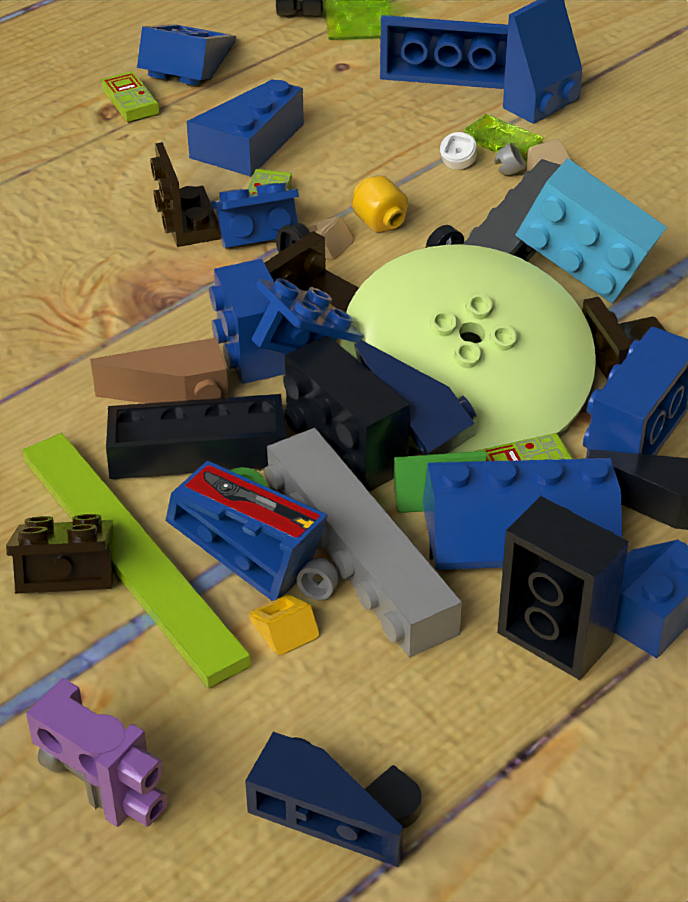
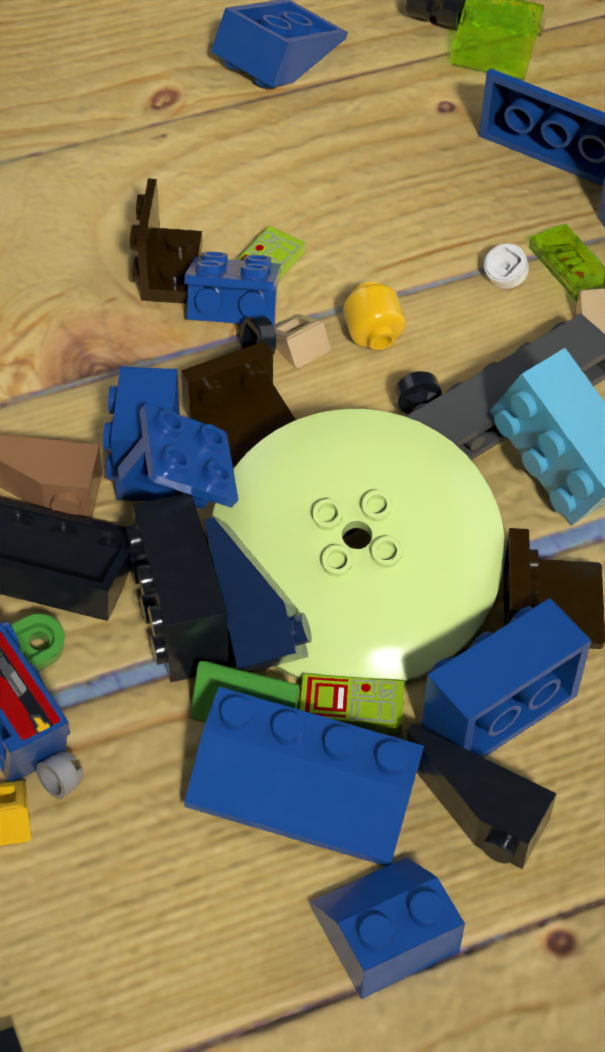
camera: 20 degrees right, 10 degrees up
(130, 96) = (190, 85): lime tile -> none
(247, 128) = (288, 168): blue wedge -> none
(366, 544) = (124, 749): light grey brick -> none
(511, 160) = (557, 296): light grey hinge -> none
(561, 586) = (269, 893): black brick -> none

